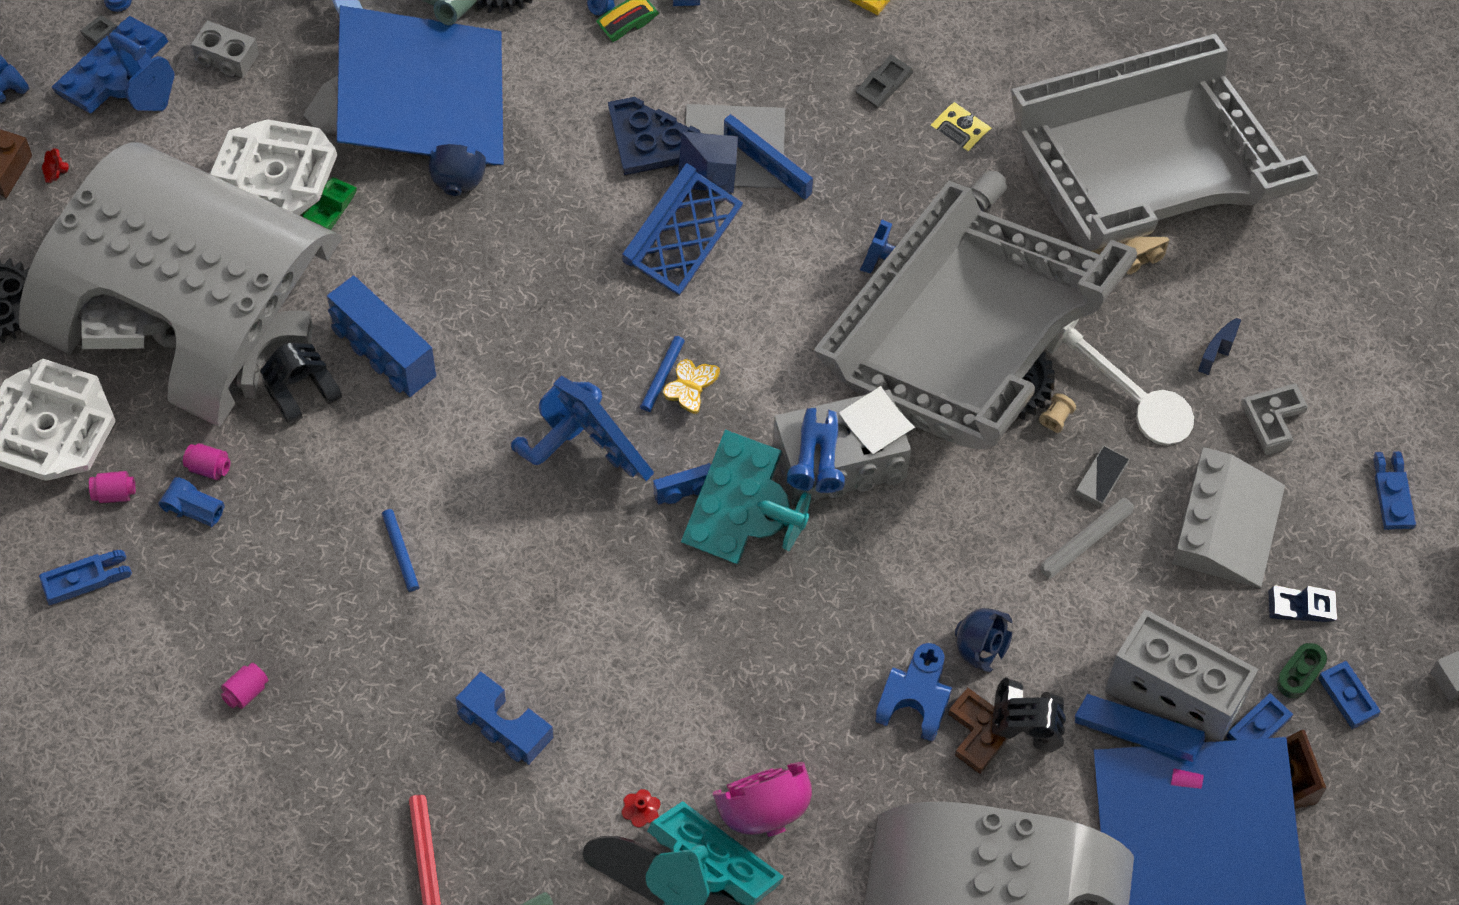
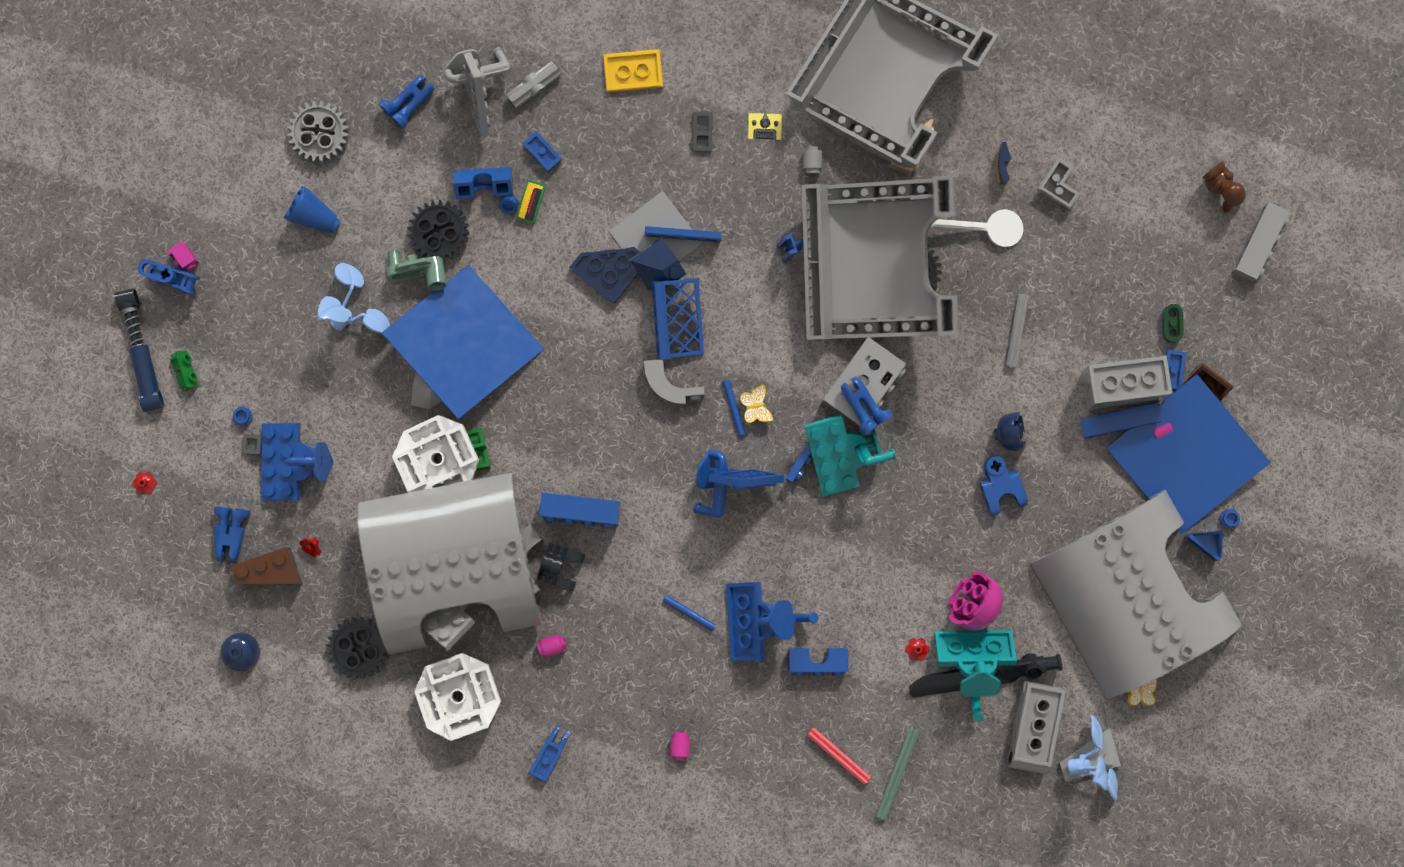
camera: 40 degrees left, 25 degrees up
(111, 487) = (518, 698): dark pink brick -> none
(185, 500) = (562, 674): blue piece -> none
(224, 49) = (333, 397): light grey brick -> none
(456, 169) = (529, 378): dark blue cylinder -> none
(475, 602) = (755, 621): none -> blue plate
(601, 274) = (659, 384): none -> light grey arch
(876, 420) = (877, 361): white sticker -> none
(981, 743) = (1049, 475): reddish brown plate -> none
(1036, 717) = (1073, 462): black piece -> none
(1057, 412) = (950, 270): tan bush -> none
(1102, 476) = (998, 288): tile -> none
(1229, 519) = (1079, 265): light grey slope -> none
(1303, 605) = (1147, 284): slope -> none
(1349, 694) = (1204, 318): blue plate -> none
(1393, 493) = (1147, 181): blue hinge -> none

